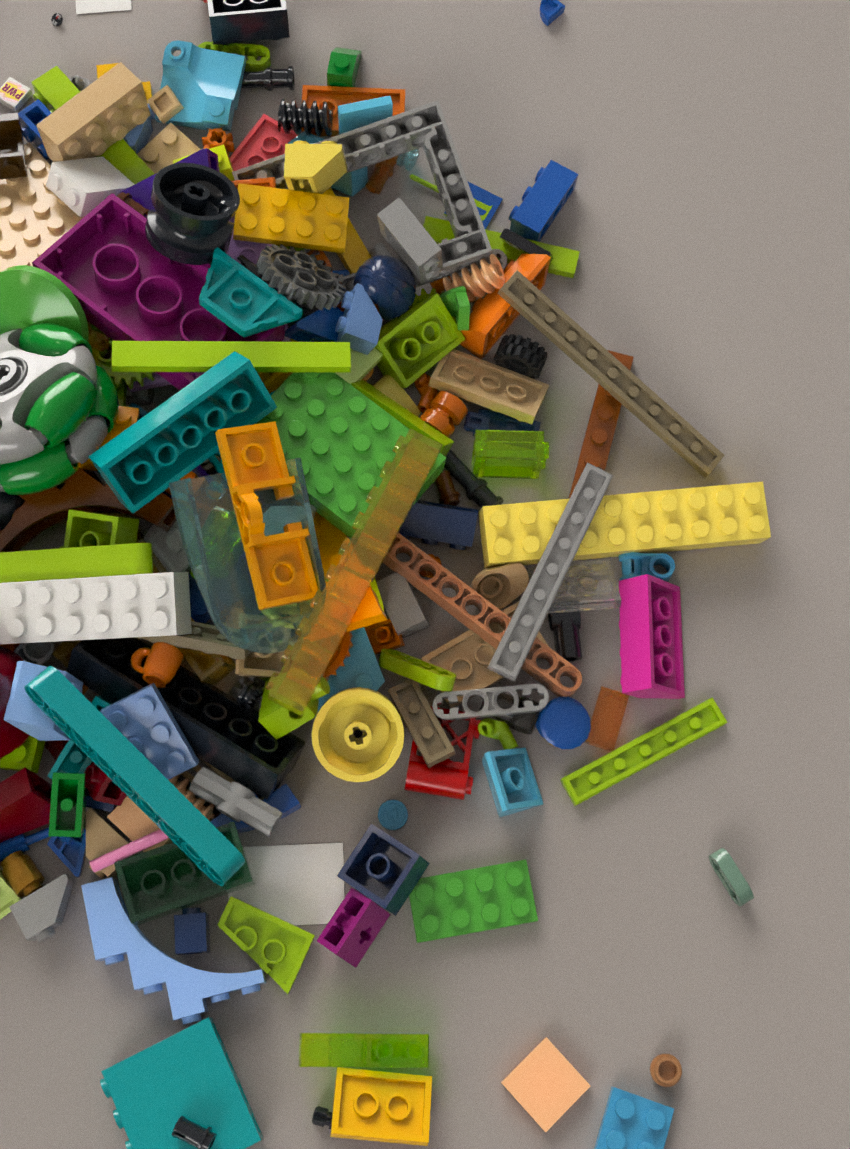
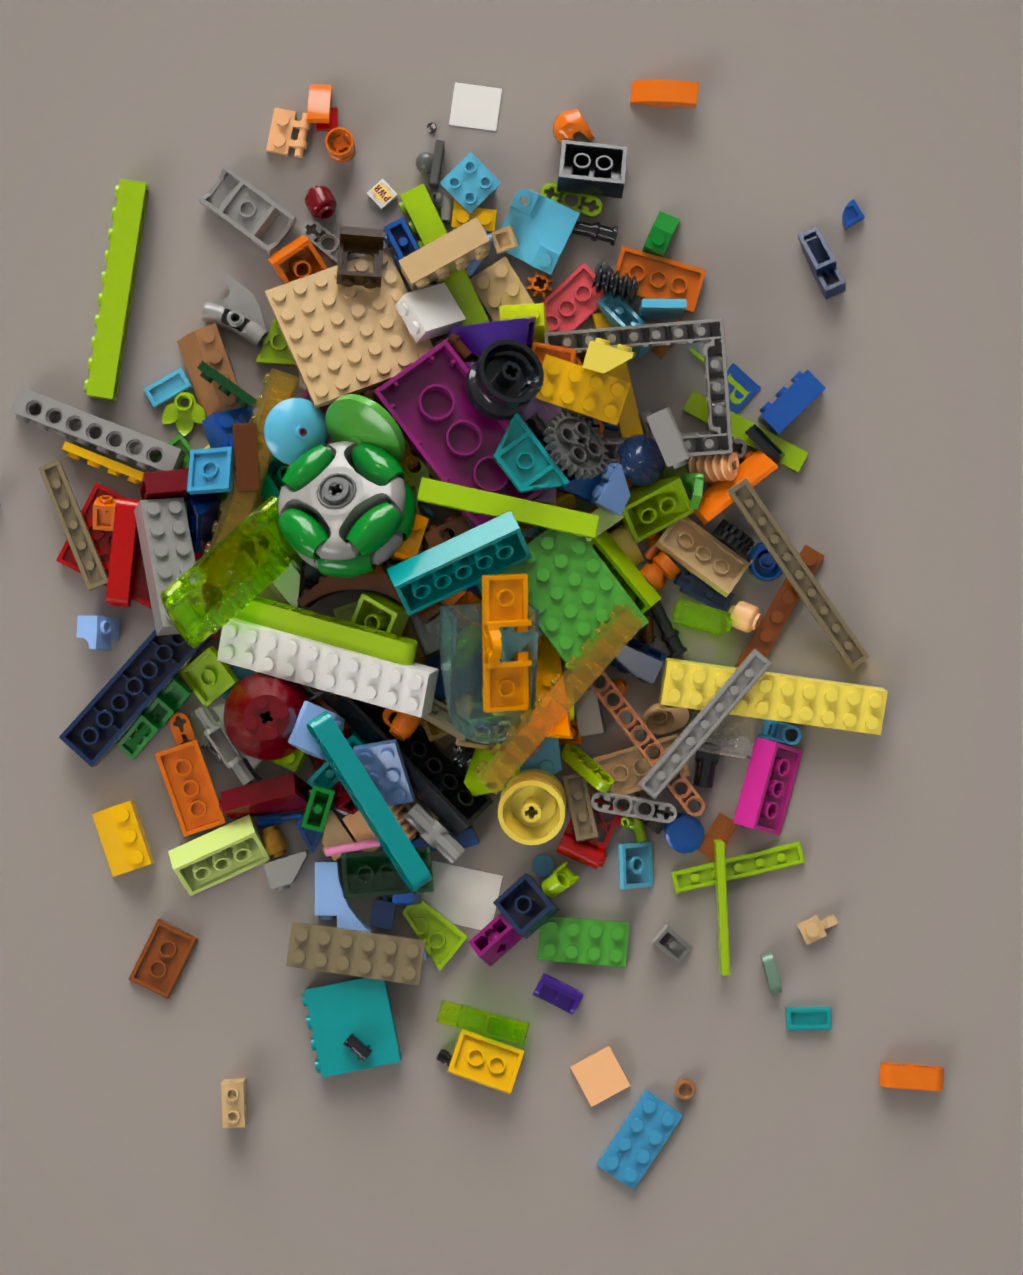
camera: 20 degrees right, 15 degrees up
(64, 49) = (430, 163): none -> dark grey tile
(109, 50) = (470, 183): none -> medium azure hinge
(162, 997) = (355, 953): none -> dark tan plate
(218, 902) = (406, 899): none -> blue tile
(419, 825) = (559, 880): none -> lime piece
(457, 982) = (558, 993): none -> dark purple hinge
(533, 58) = (822, 263): none -> dark blue slope
(563, 444) = (745, 616): none -> light nougat head
(566, 380) = (762, 564): none -> blue piece
(590, 871) = (672, 944): none -> light grey slope
(641, 806) = (722, 907): none -> lime tile
(766, 804) = (813, 928): none -> tan plate
(797, 925) = (808, 1018): none -> teal tile

